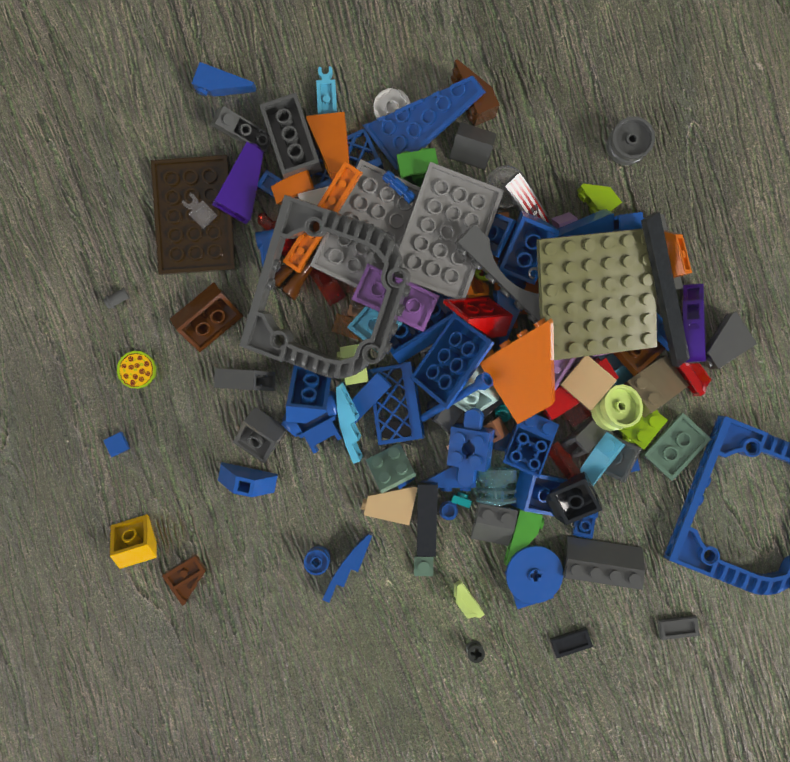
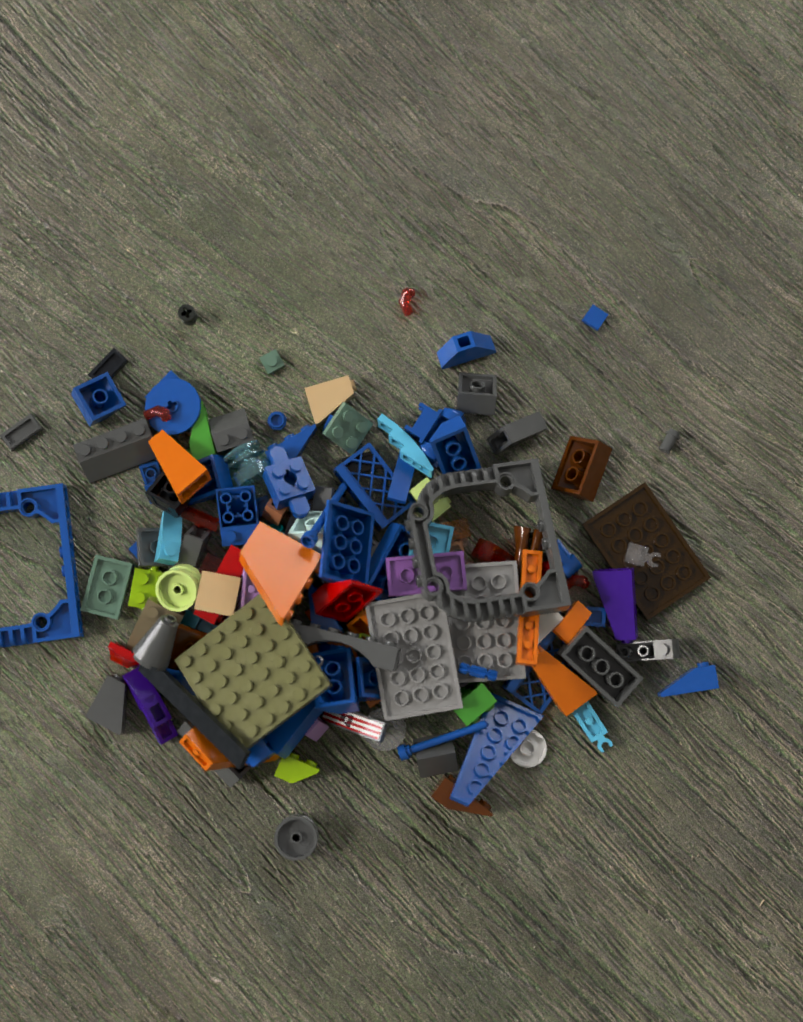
camera: 150 degrees right, 5 degrees down
(132, 542) = (532, 244): yellow slope -> none
(136, 369) = (615, 390): tile -> none
(184, 577) = (470, 239): reddish brown wing -> none
(271, 558) = (404, 300): none -> clear red arm
(317, 560) = (366, 315): blue wheel -> none
(351, 562) = (336, 330): blue slope -> none
(427, 519) = (291, 402): black tile -> none
(461, 499) = (271, 436): teal plate -> none
(466, 601) = (218, 351): yellowish green slope -> none
(496, 159) = (406, 751): none -> blue piece
(549, 576) = (159, 411): none -> clear red arm
(560, 513) = (179, 466): none -> orange slope
(596, 619) = (98, 399): none -> blue slope
(665, 367) = (157, 644): none -> dark grey cone

